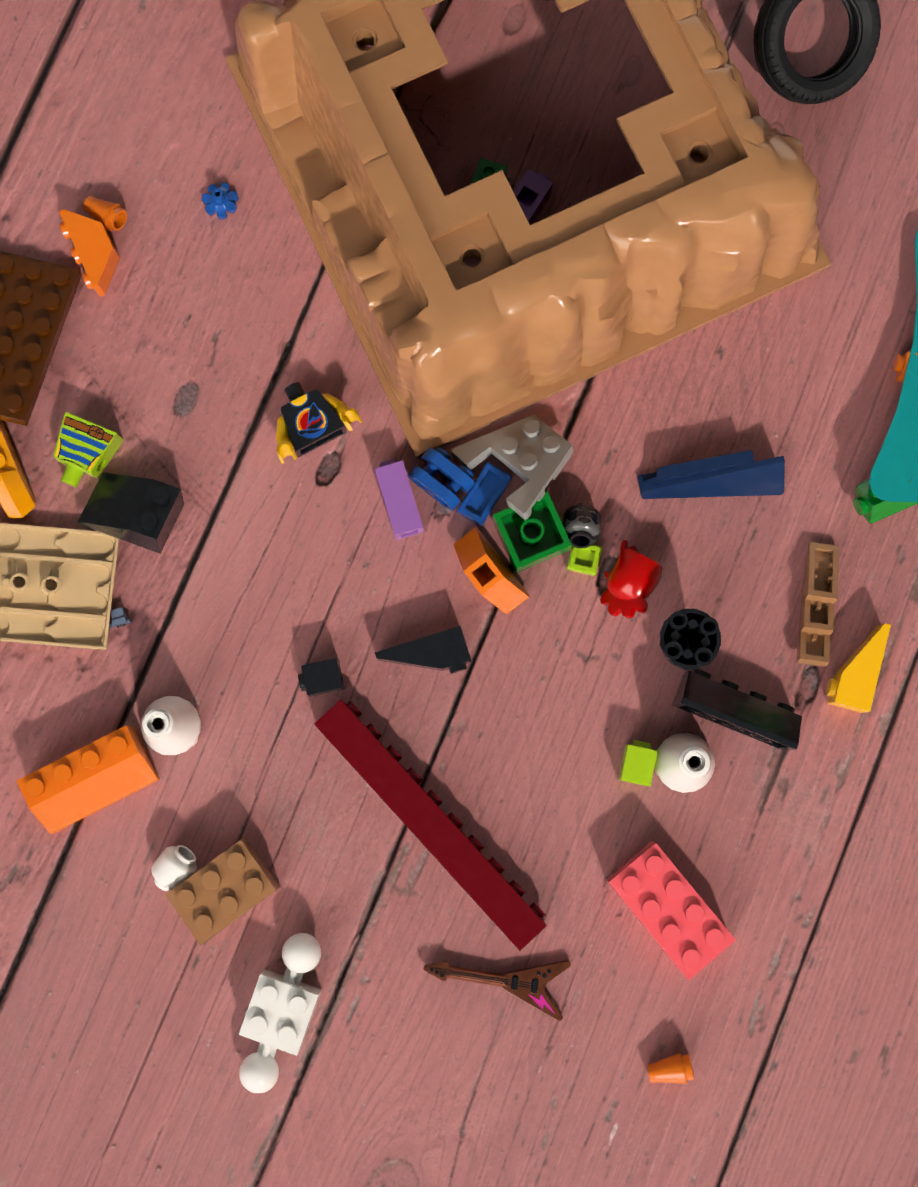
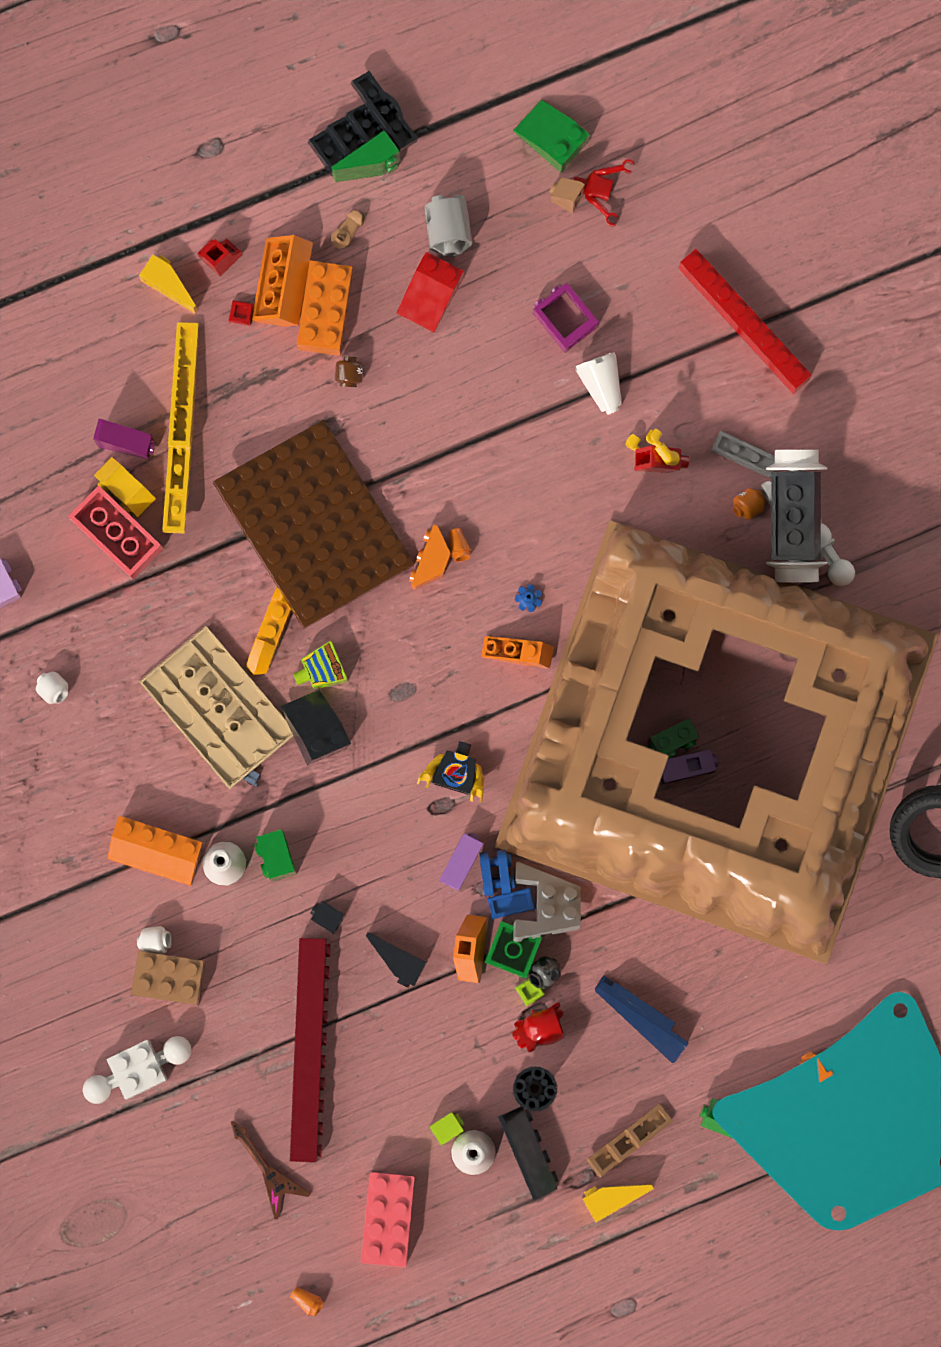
camera: 45 degrees right, 0 degrees up
(215, 668) = (276, 855): none -> green brick
(258, 255) = (517, 651): none -> orange slope

